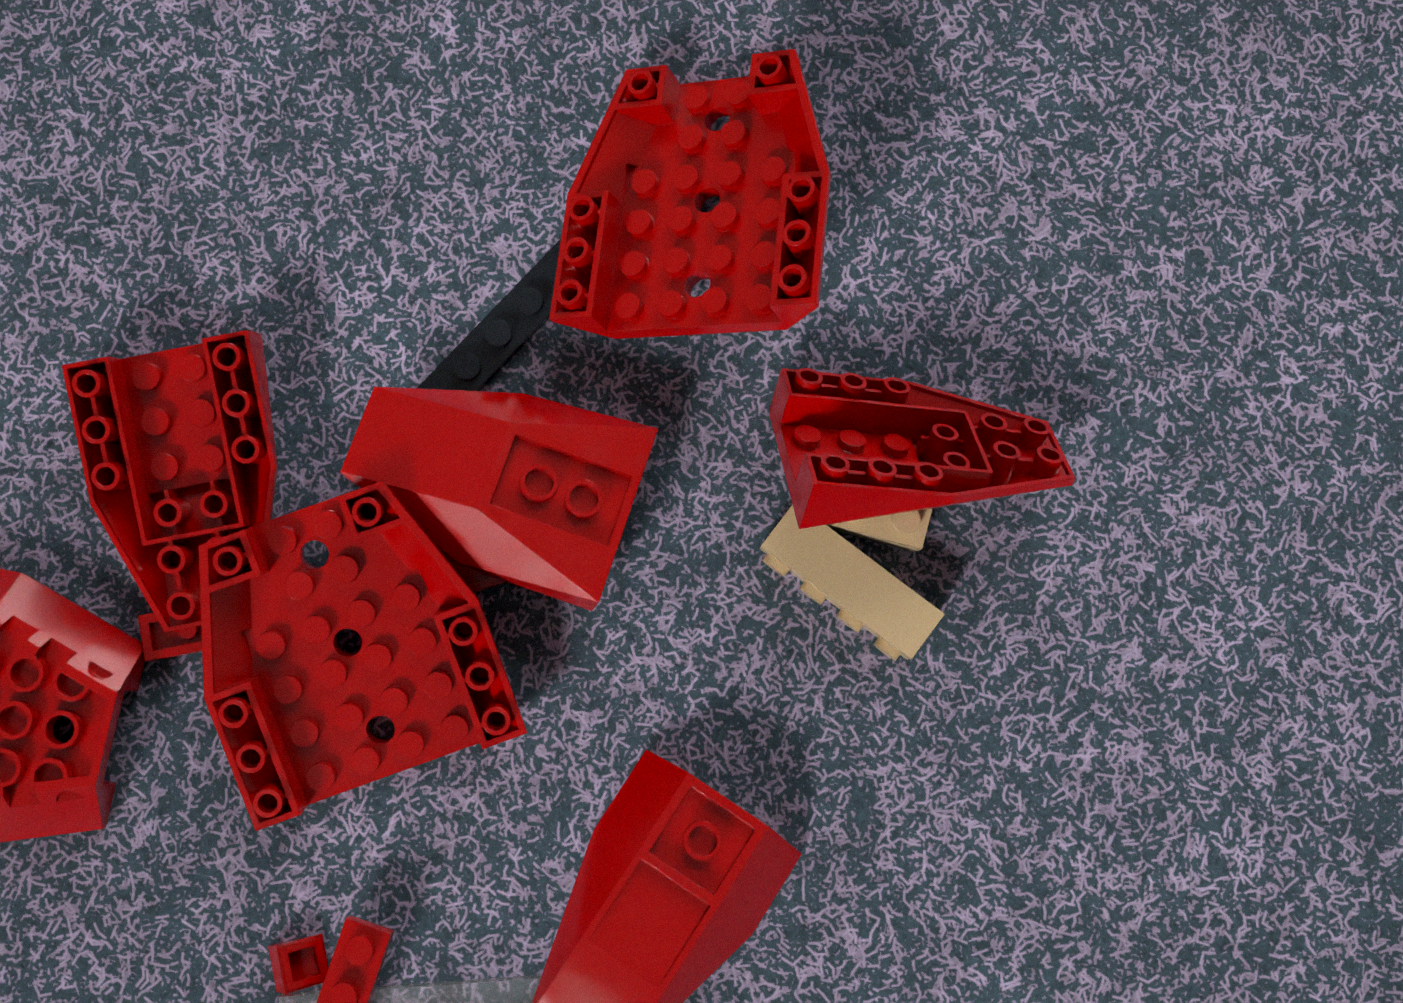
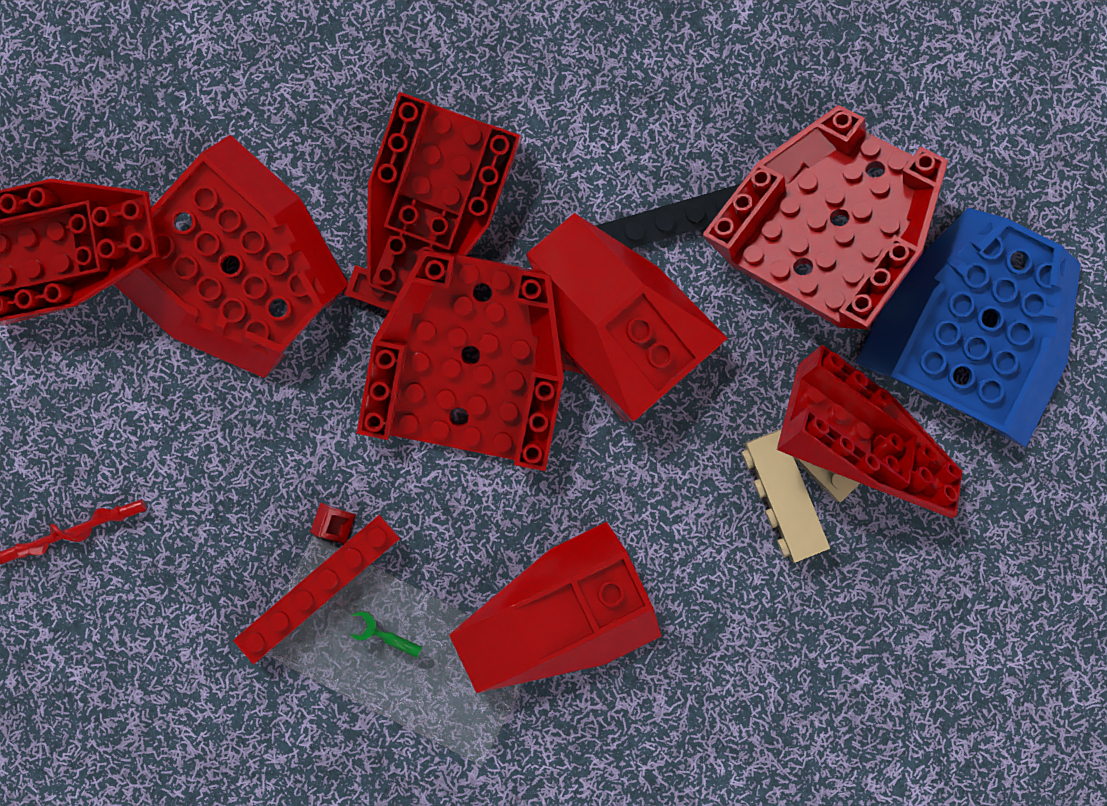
camera: 30 degrees right, 5 degrees up
(907, 262) = (938, 324): none -> blue wedge

